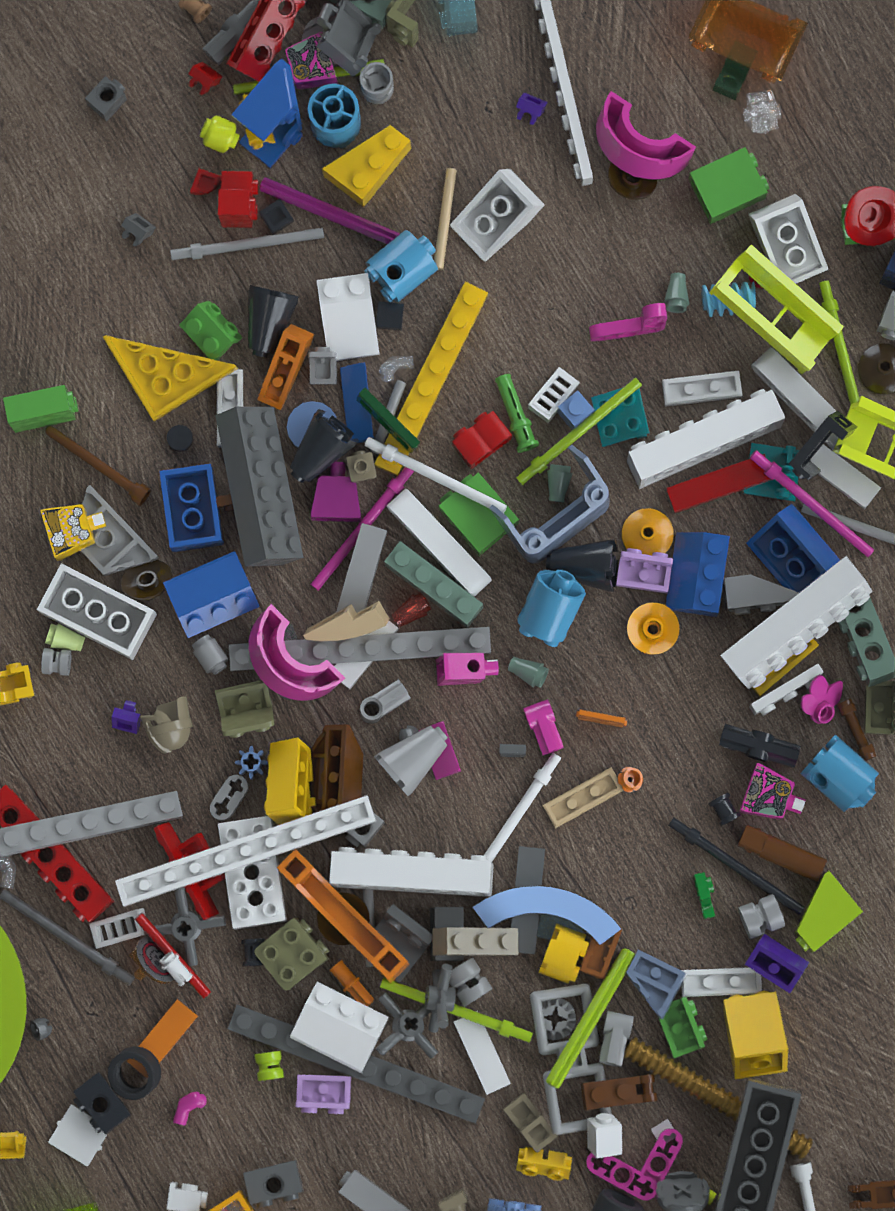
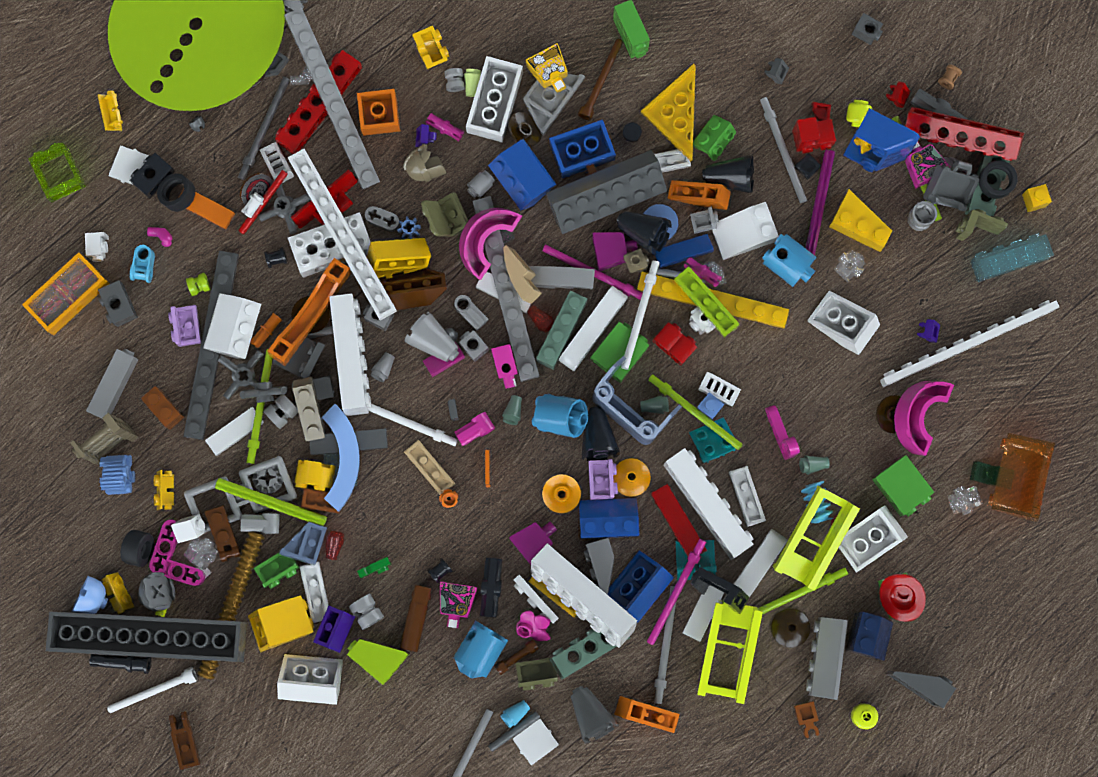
camera: 75 degrees right, 0 degrees up
(80, 773) = (378, 112): none -> orange brick
(119, 688) = (444, 127): none -> dark pink pin
(227, 1139) = (142, 265): none -> medium azure piece
(292, 953) = (279, 284): olive bracket -> none
(334, 115) = (890, 189): dark azure cylinder -> none
(388, 420) = (673, 272): dark green tile -> none
(390, 316) = (752, 261): black tile -> none
(394, 382) = (703, 272): none -> dark pink pin
(426, 197) = (845, 270): none -> clear brick
(431, 1144) = (162, 407): none -> dark orange brick
(435, 834) = (383, 367): none -> light grey cone
(436, 696) = (475, 353): none -> light grey brick
(437, 384) = (706, 302): none -> lime fence
(445, 217) = (832, 286): tan bar -> none
(461, 404) = (699, 325): none -> white brick
(519, 424) = (689, 367): bright green pin -> none
(529, 1122) = (191, 474): dark tan slope -> none
(640, 1124) = (201, 552): none -> clear brick
(662, 944) = (334, 543): none -> clear red cone
(693, 837) = (416, 552): black bar -> none
(709, 677) = (532, 539): none -> magenta torso
(836, 1008) = (310, 679): none -> white slope

